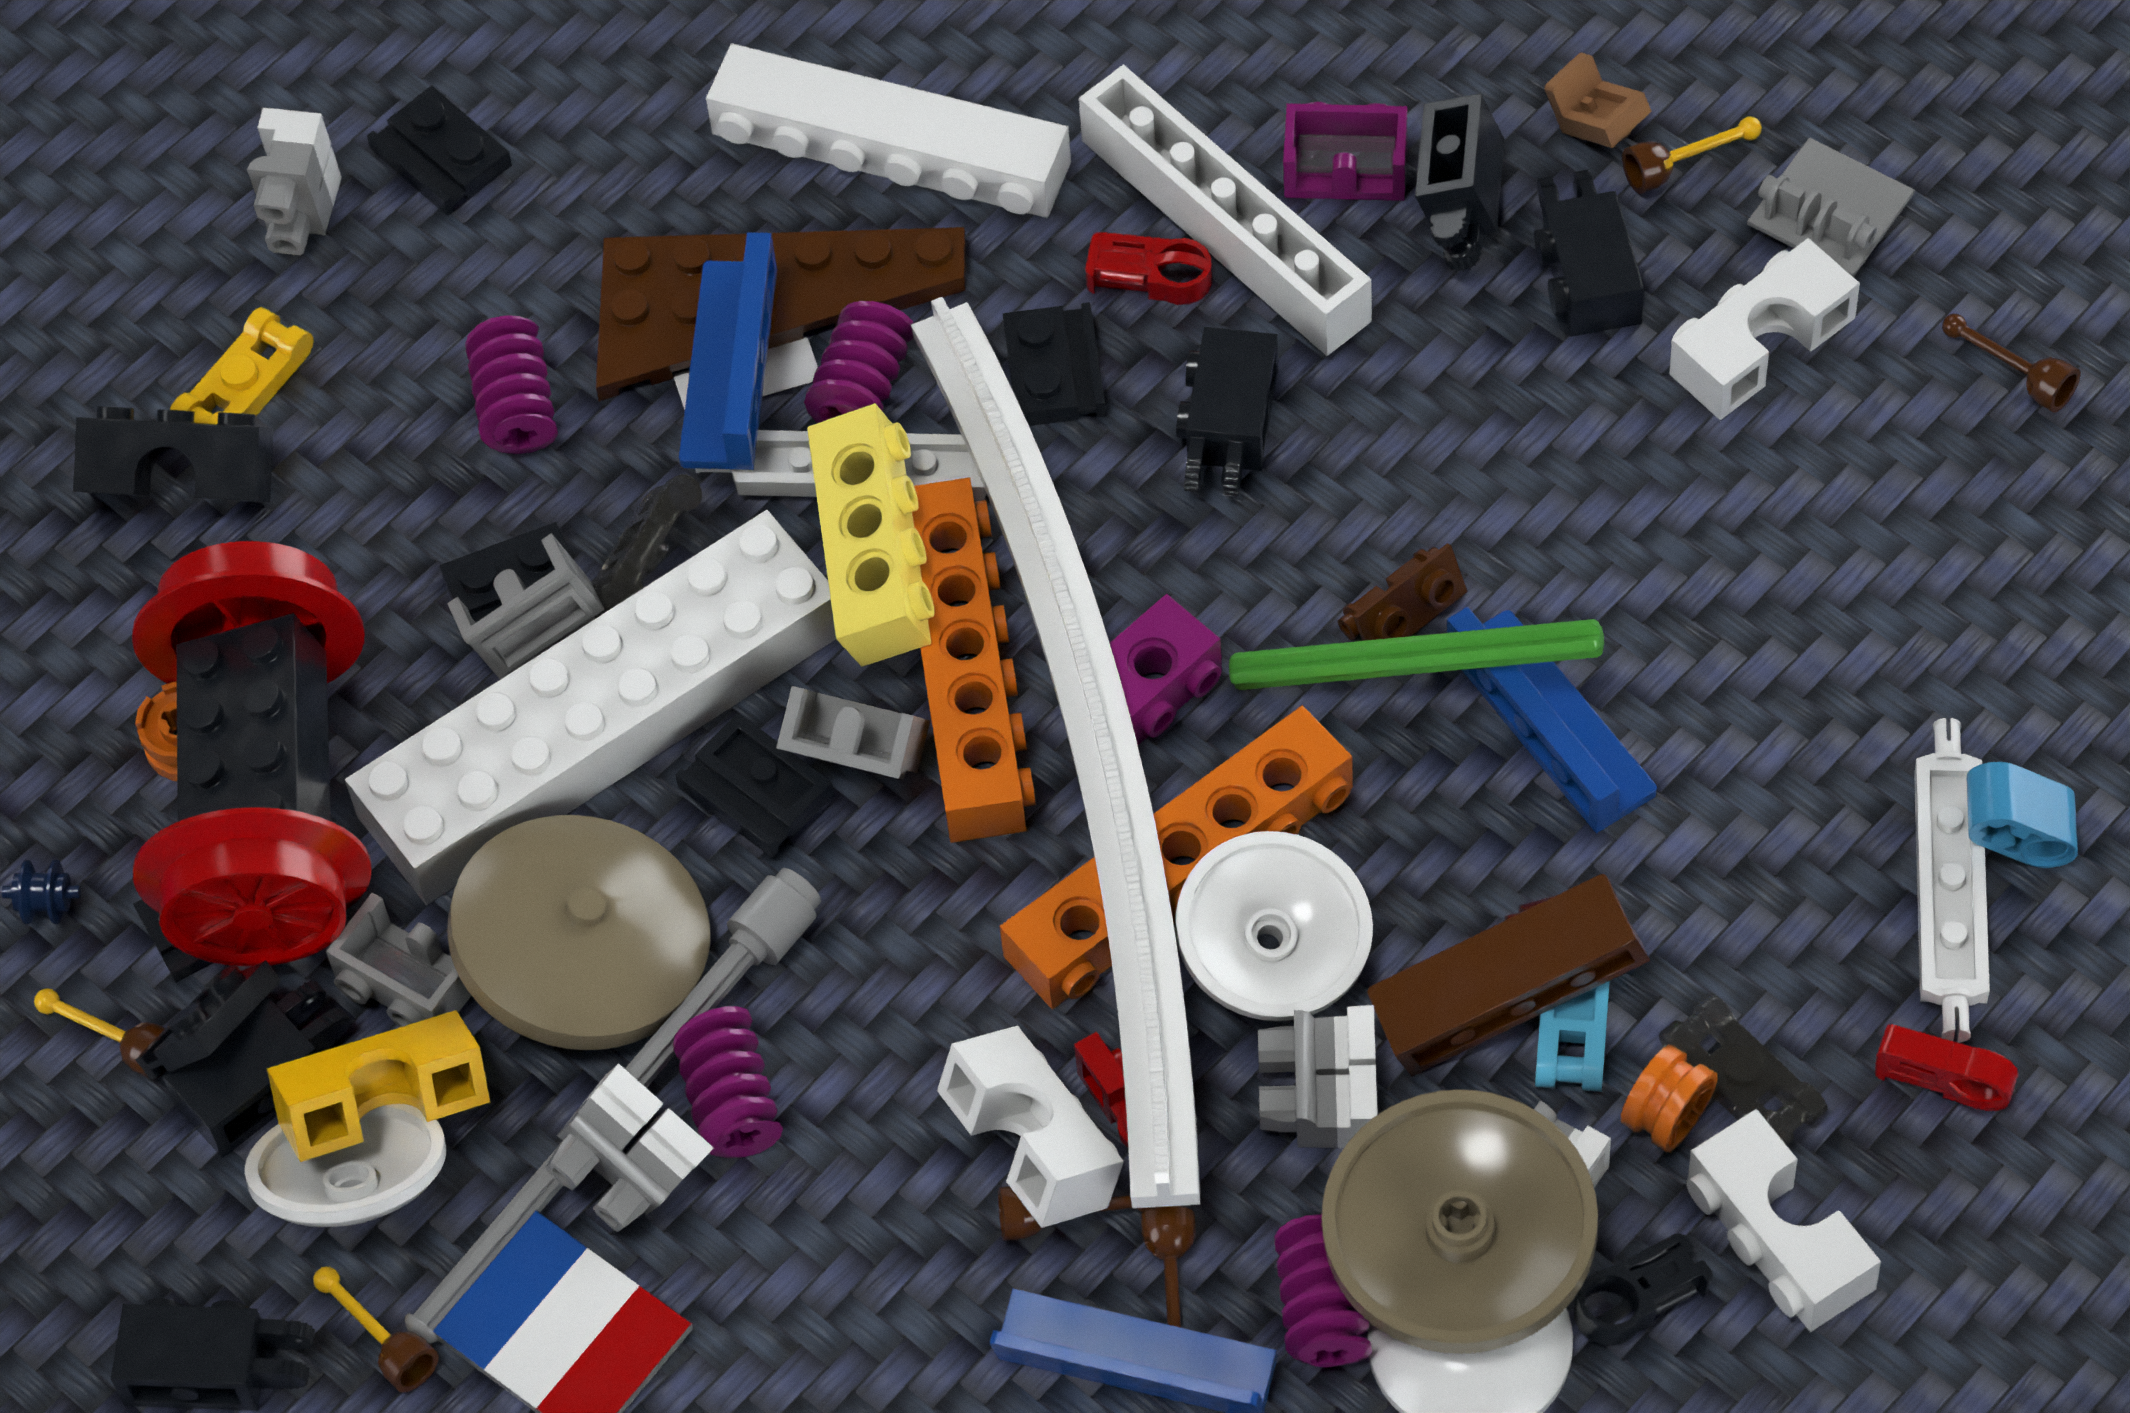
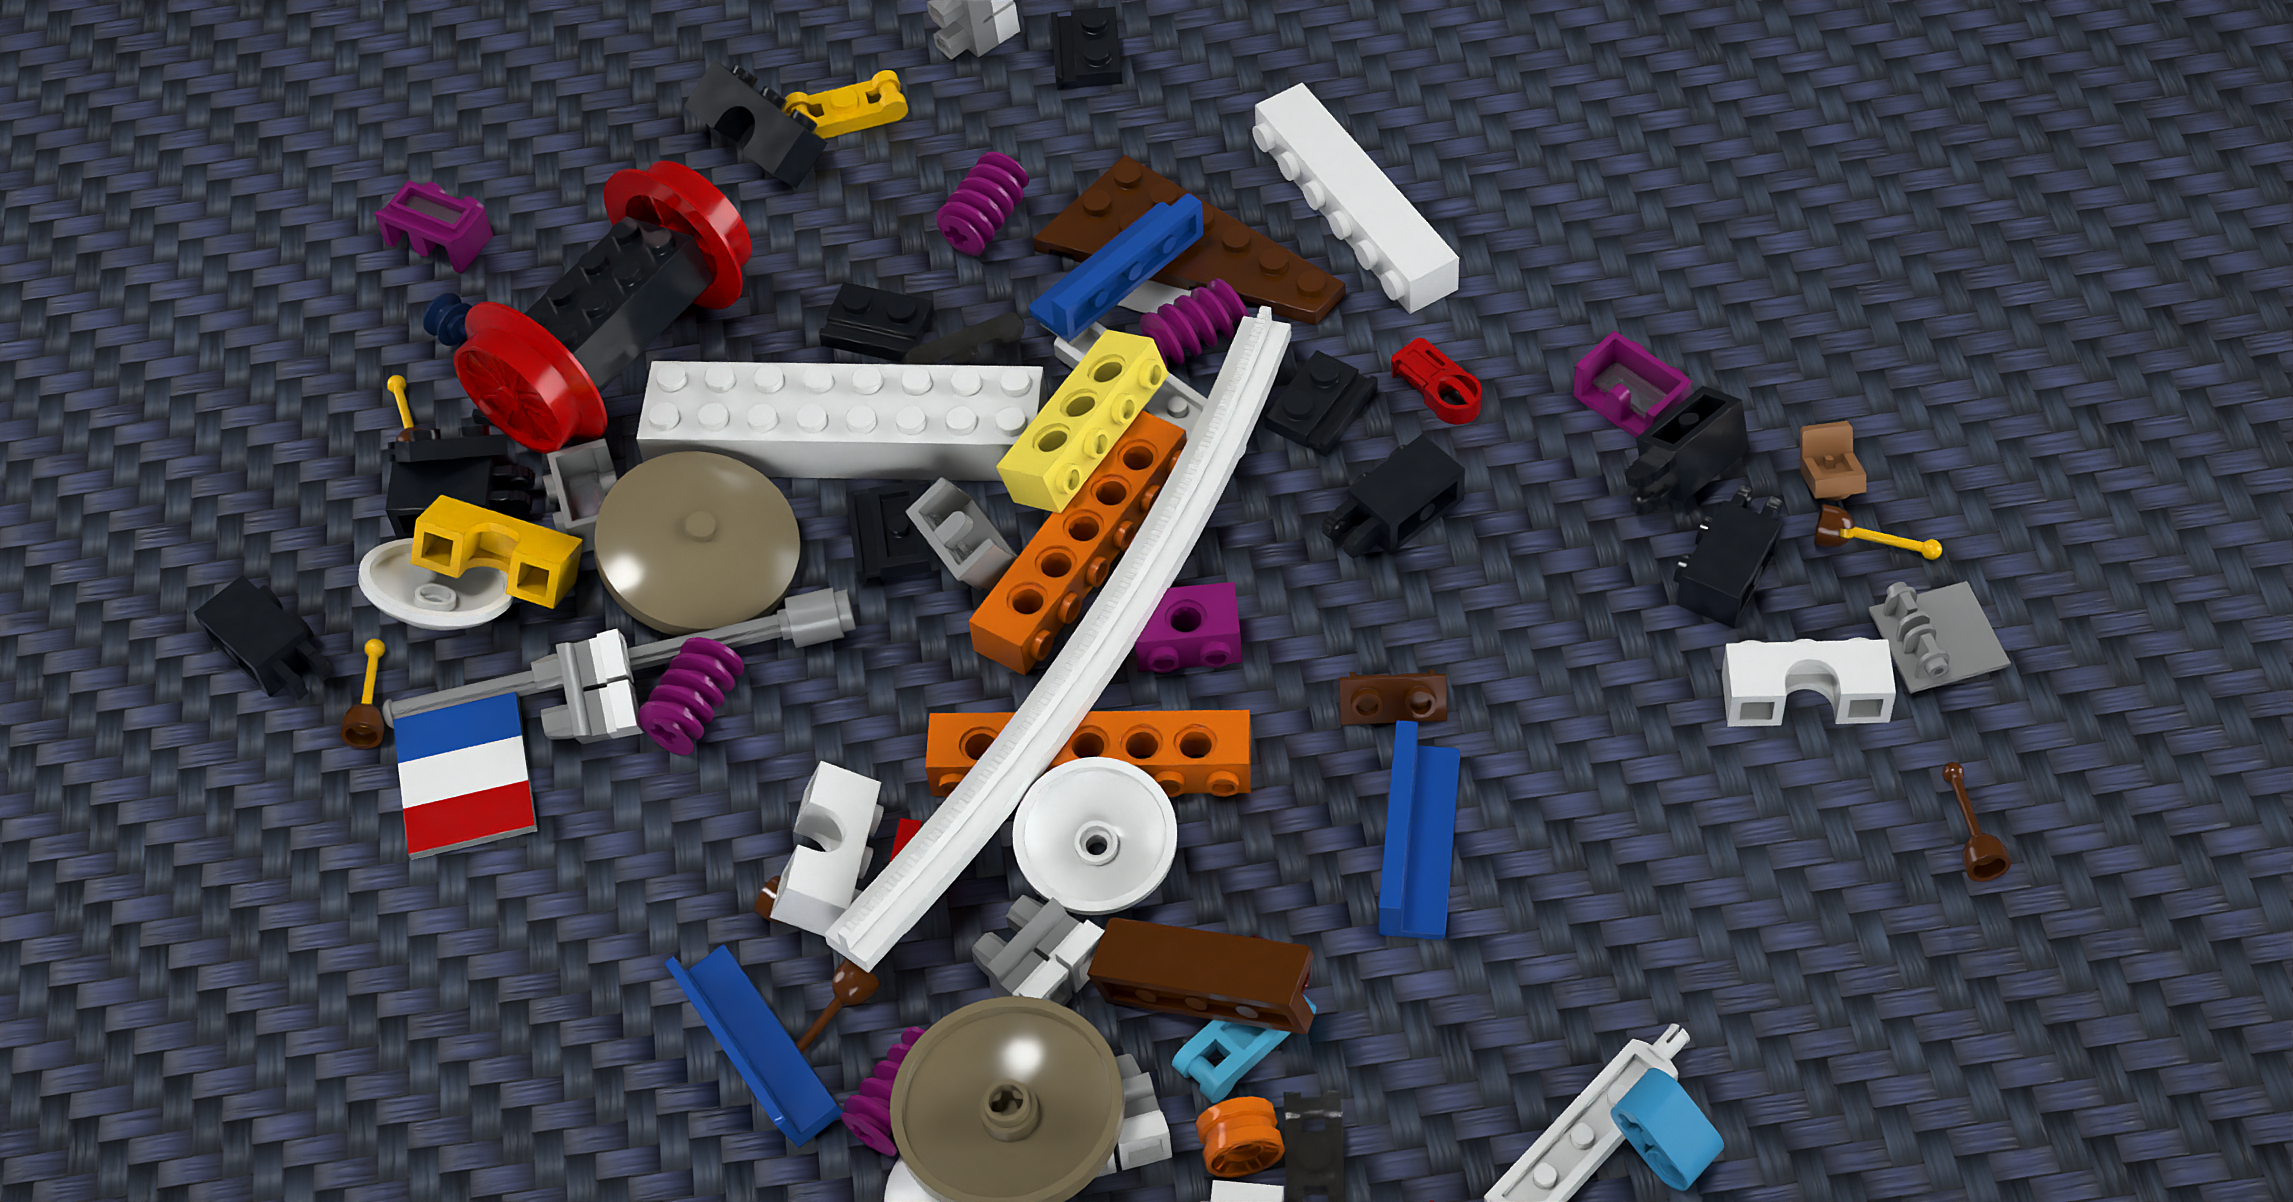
camera: 40 degrees right, 5 degrees down
(530, 616) = (854, 336): light grey window -> none
(1226, 210) = (1512, 375): white brick -> none
(1417, 654) = (1356, 731): bright green axle -> none

